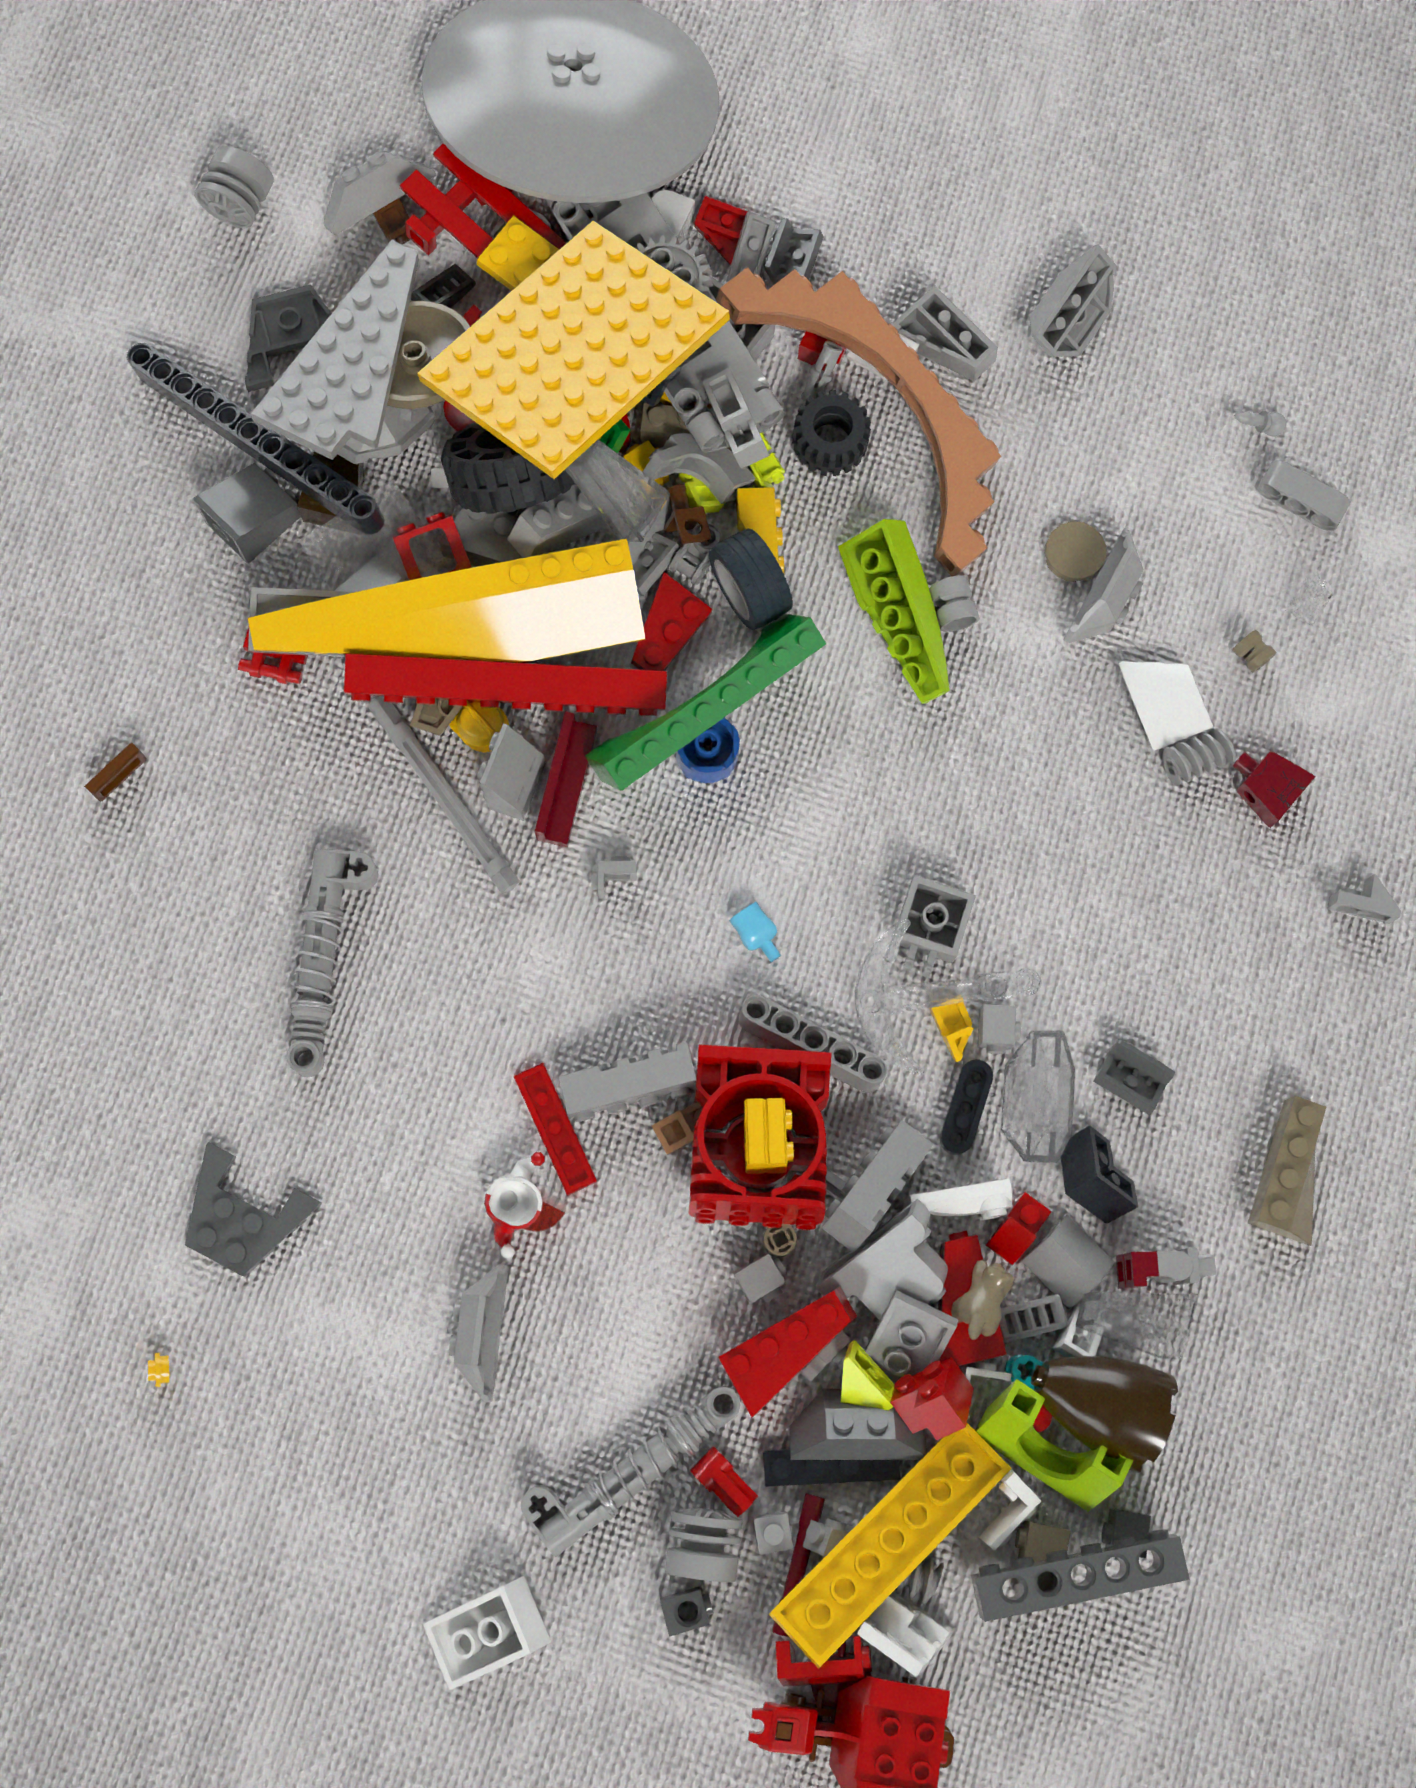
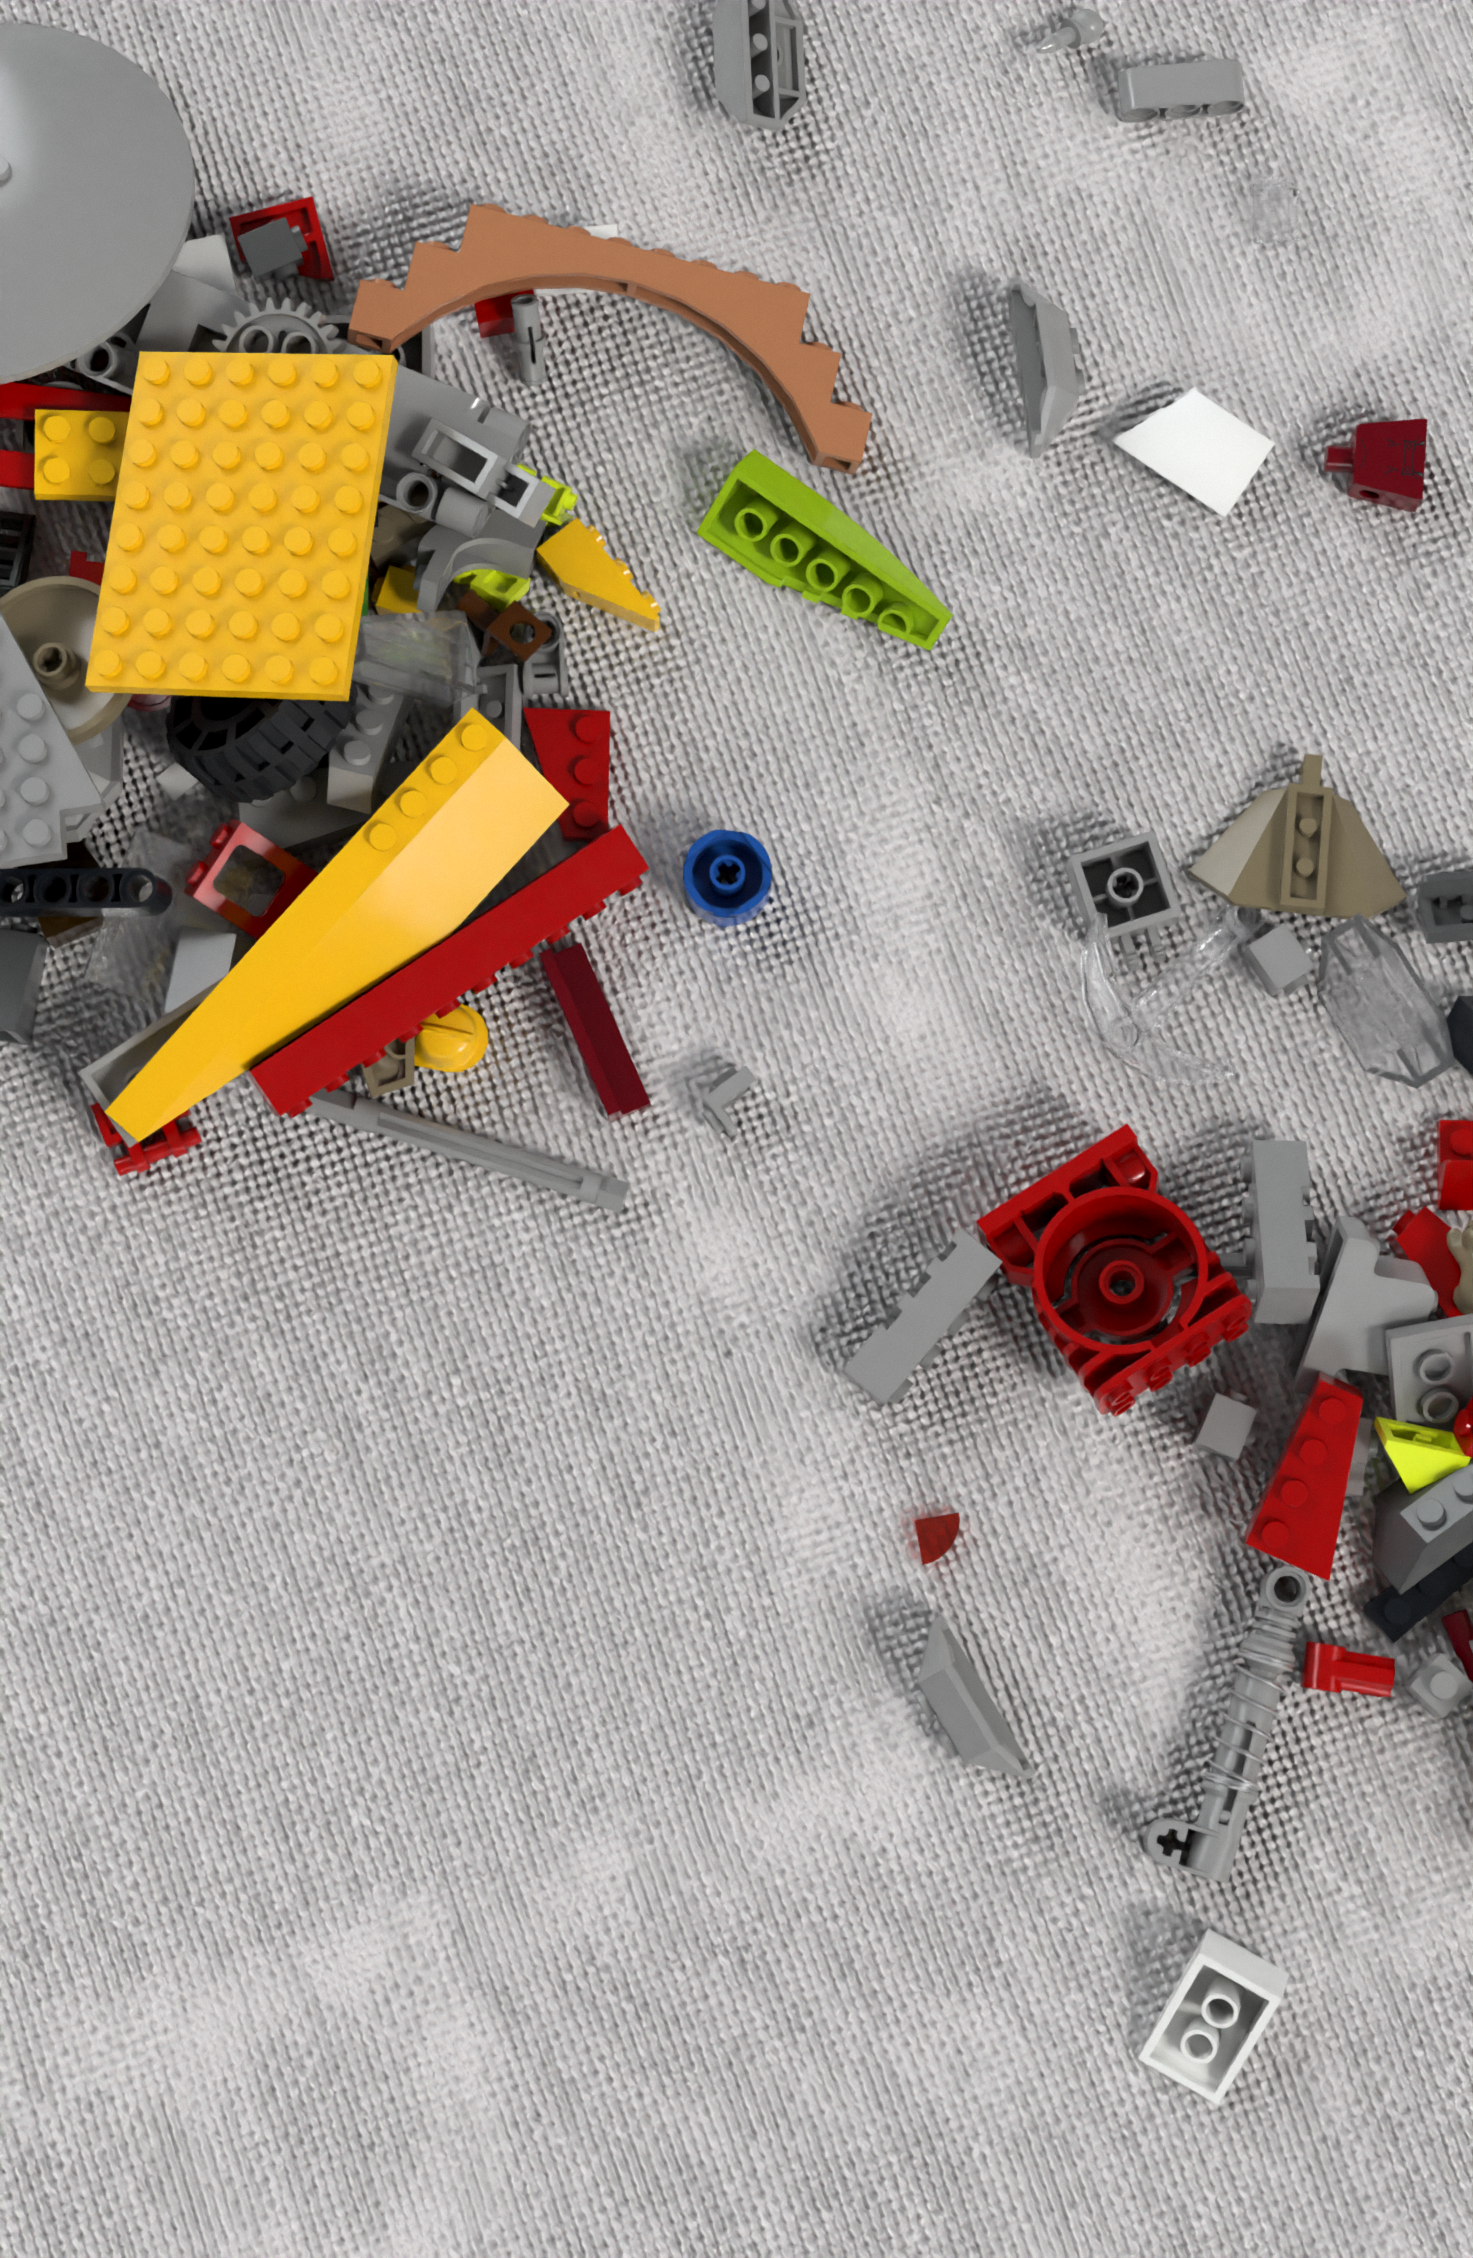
camera: 30 degrees left, 5 degrees up
(115, 772) = (75, 1396): reddish brown tile -> none
(159, 1369) = (647, 2009): yellow plate -> none
(232, 1229) = (605, 1801): dark grey wing -> none
(318, 952) = (442, 1389): light grey piece -> none
(510, 773) = (538, 1077): light grey slope -> none
(514, 1202) = (898, 1541): white piece -> none
(555, 1129) = (878, 1429): red tile -> none
(674, 1622) = (1386, 1837): dark grey brick -> none
(678, 1128) = (1015, 1326): medium nougat slope -> none
(703, 1545) = (1377, 1752): light grey wheel -> none
(714, 228) = (273, 251): none -> dark grey brick
(751, 579) = (634, 647): black wheel -> none
(752, 245) = (333, 249): light grey tile -> none
(756, 930) = (934, 1045): medium azure piece -> none
(766, 1136) = (1125, 1267): yellow brick -> none
(777, 651) = (729, 708): green arch -> none
(777, 1244) = (1209, 1374): dark tan wheel -> none
(792, 250) = (385, 216): dark grey bracket -> none
(805, 1029) = (1073, 1140): light grey beam -> none
(837, 411) = (586, 370): black tyre -> none
(947, 335) = (639, 189): light grey wedge -> none
(953, 1026) = (1233, 995): yellow slope -> none
(954, 606) = (880, 506): light grey wheel -> none
(975, 1095) = (1309, 1053): black plate -> none
(986, 1198) = (1407, 1160): white slope -> none
(1056, 976) = (1300, 855): none -> dark tan panel
(1075, 551) = (970, 343): dark tan tile -> none
(1196, 753) = (1277, 486): light grey piece -> none
(1259, 656) = (1265, 321): dark tan wheel -> none

